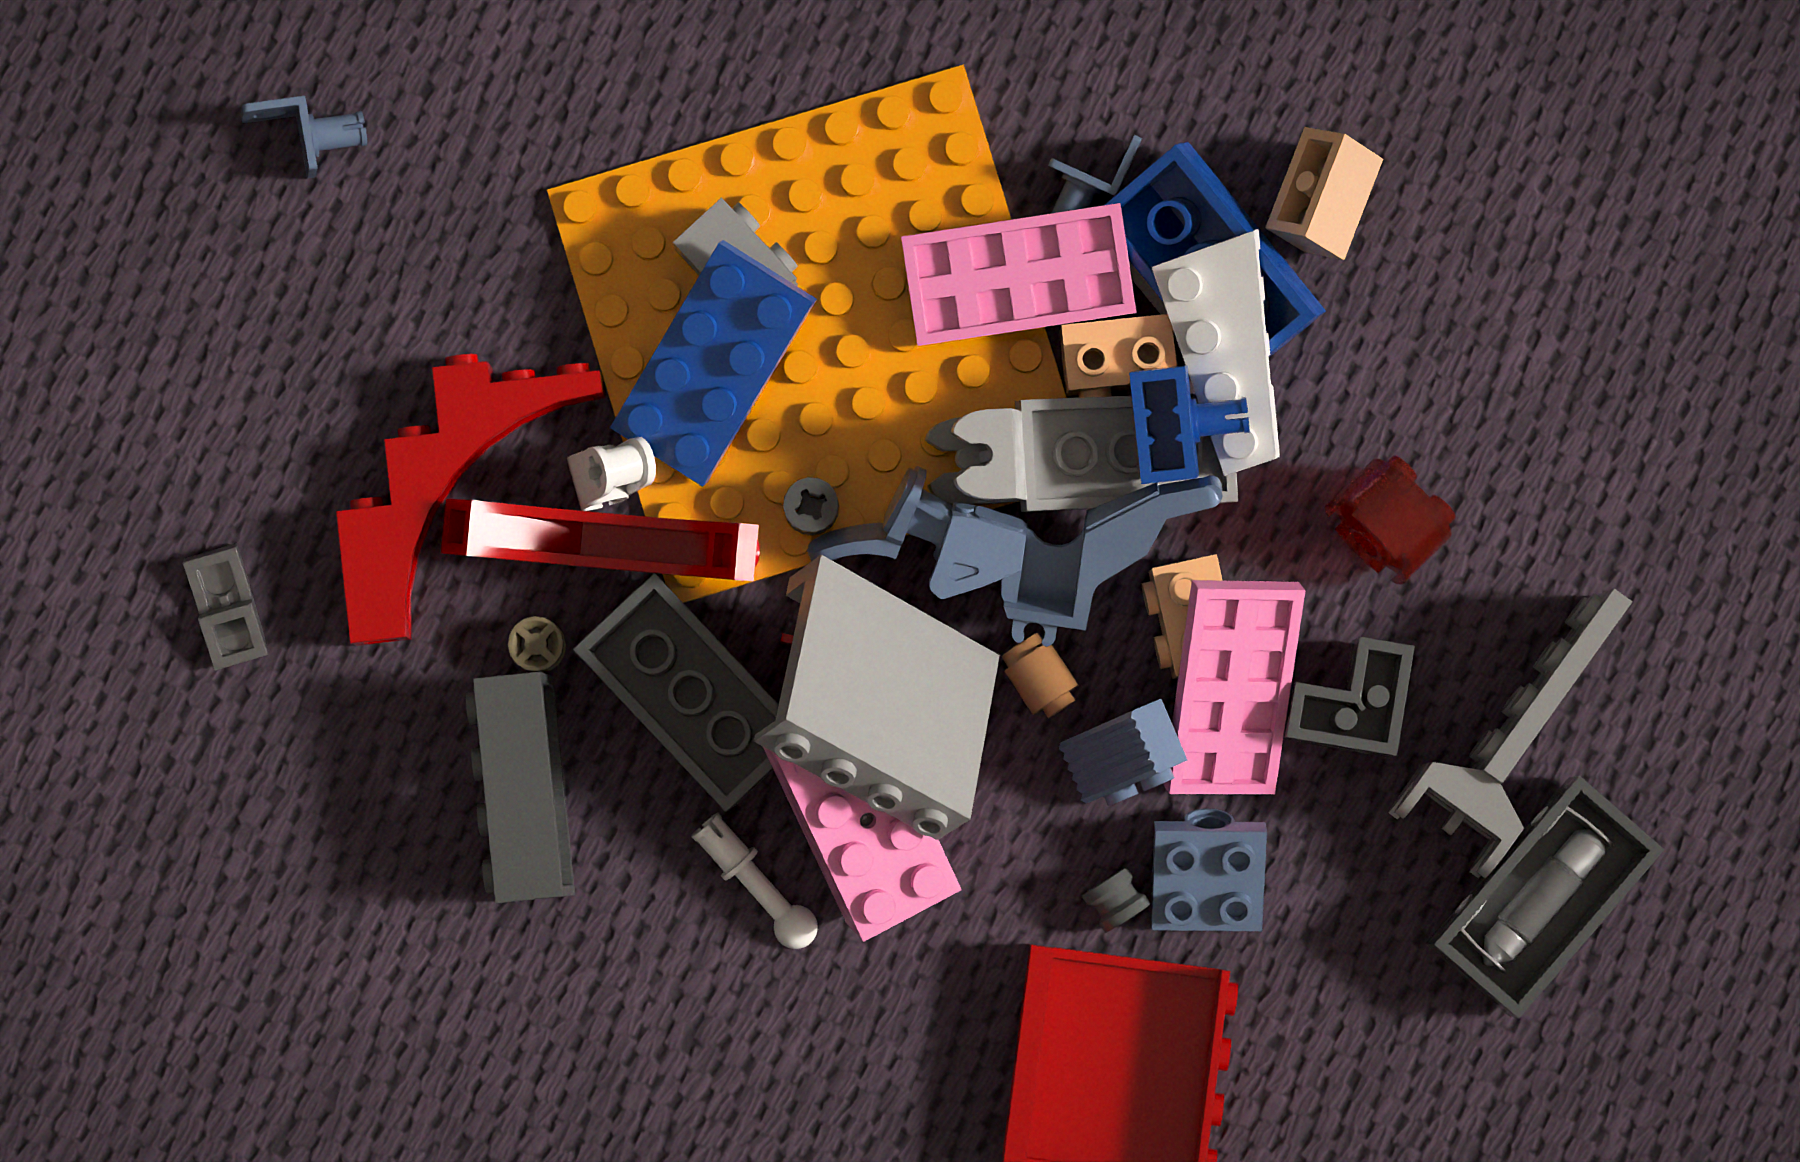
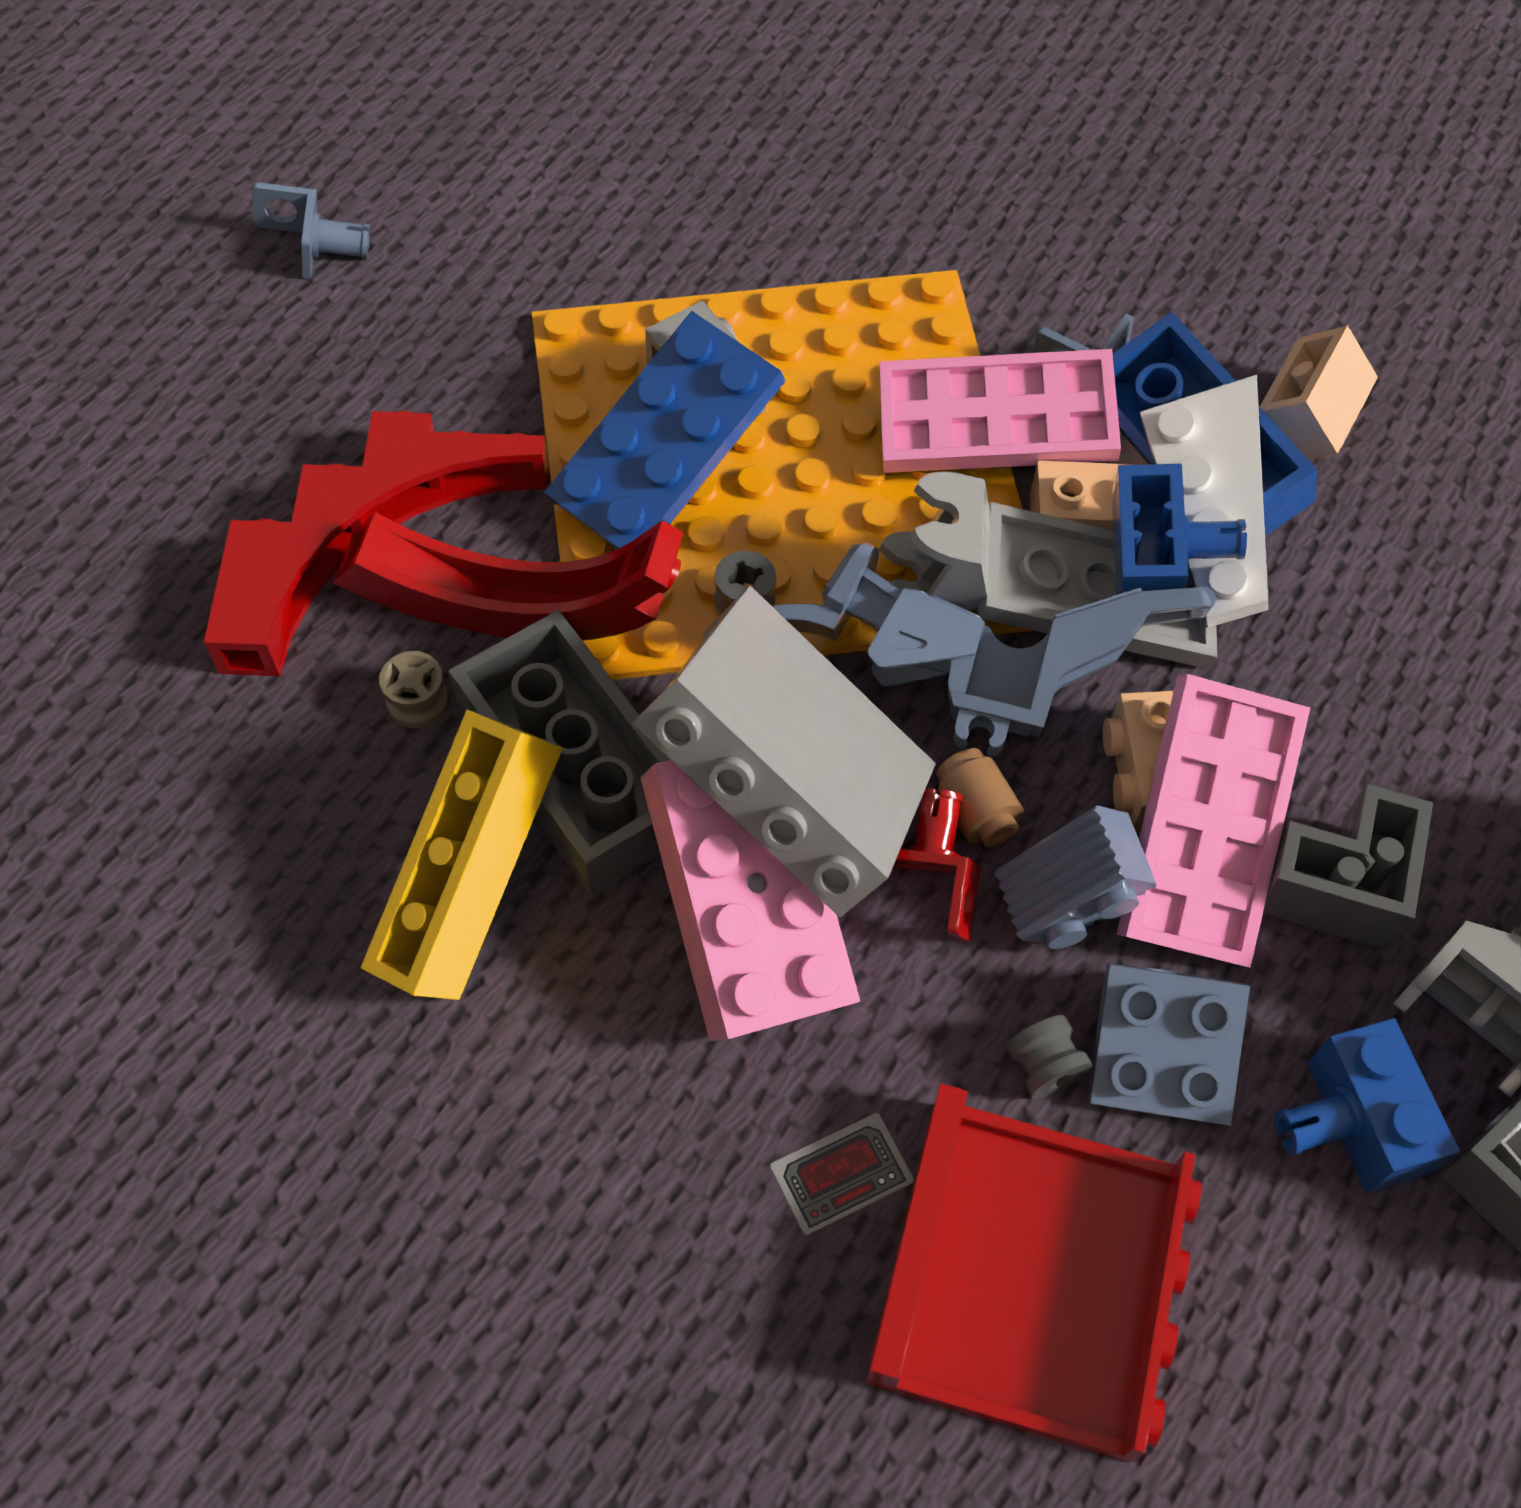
camera: 10 degrees right, 25 degrees down
(225, 606) = (88, 611): flat silver slope -> none
(522, 787) = (349, 811): dark grey piece -> none
(611, 472) = (536, 522): white piece -> none
(626, 823) = (461, 858): none -> yellow brick
(793, 924) = (645, 1036): white pin -> none
(964, 1009) = (841, 1173): none -> sticker
(1009, 743) = (935, 854): none -> red bracket
(1369, 905) = (1373, 1104): none -> blue brick
(1391, 518) = (1395, 684): clear red brick -> none

